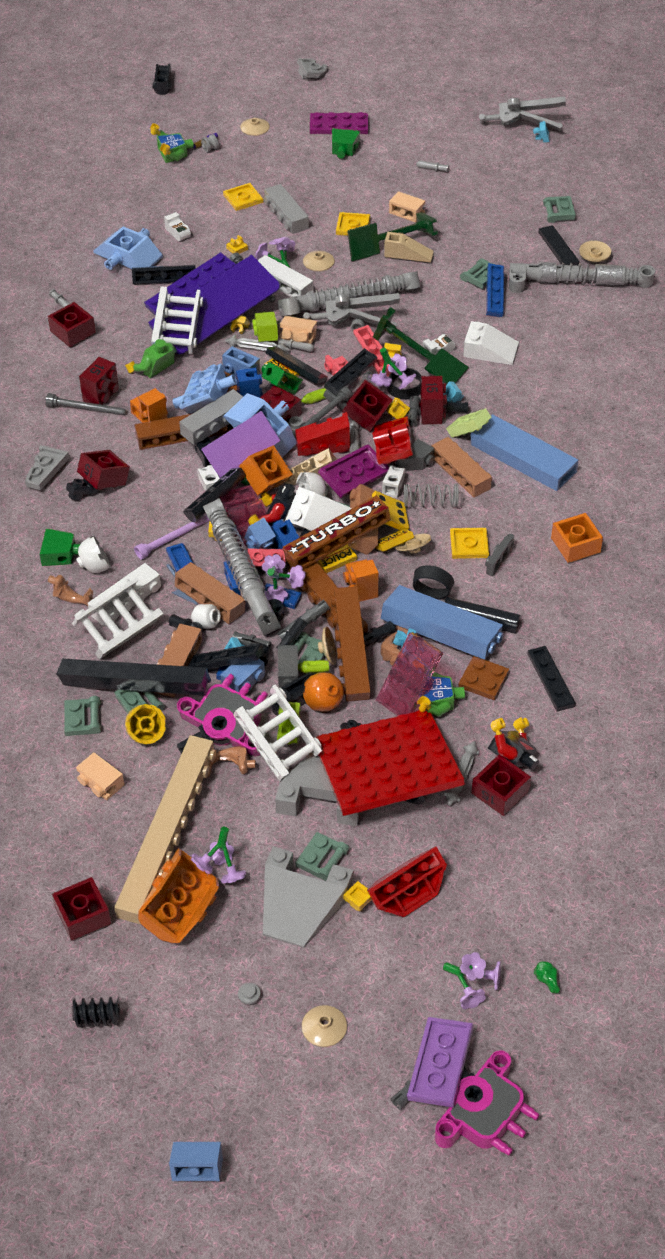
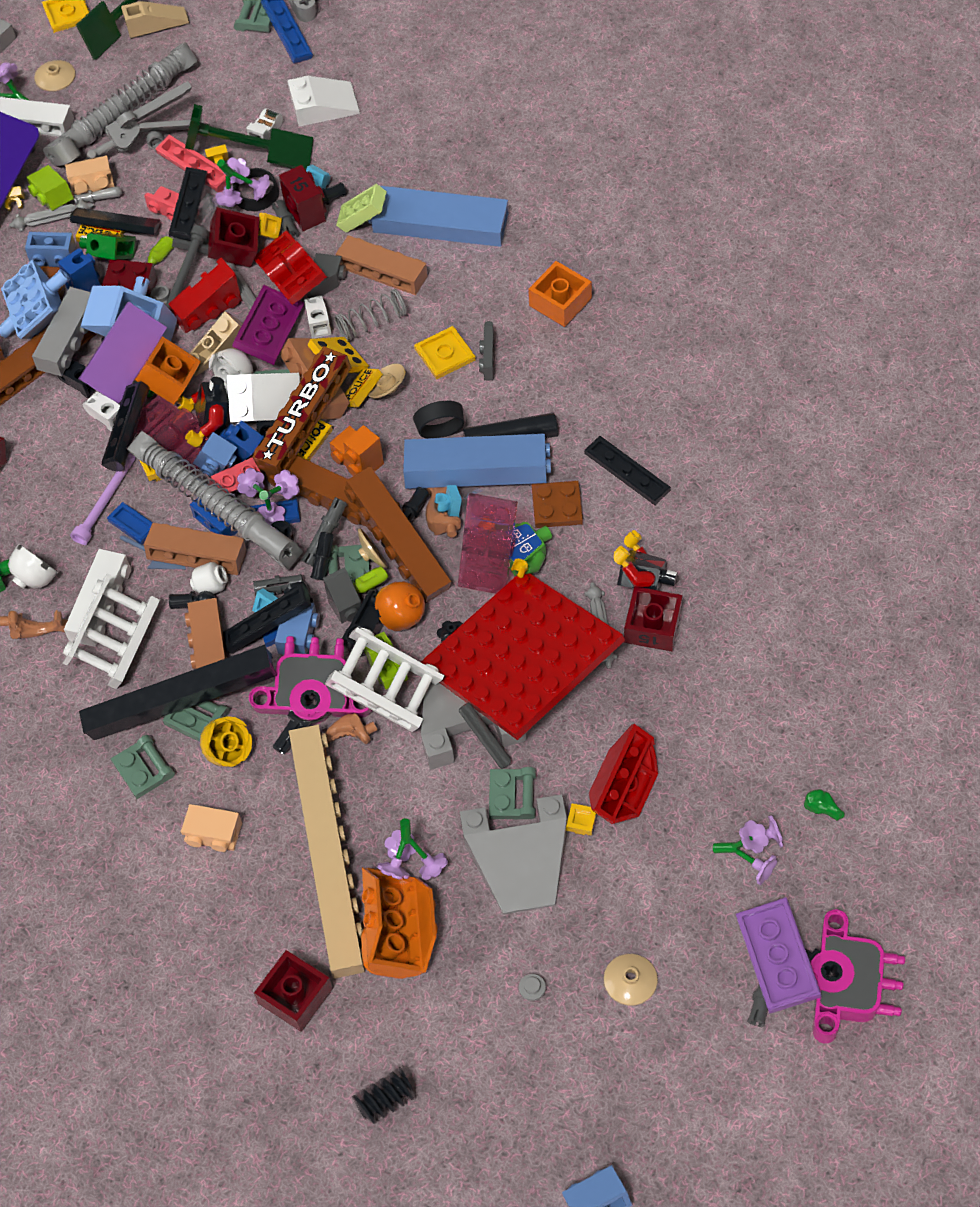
camera: 25 degrees left, 10 degrees up
(325, 805) = (484, 735): none -> dark grey axle

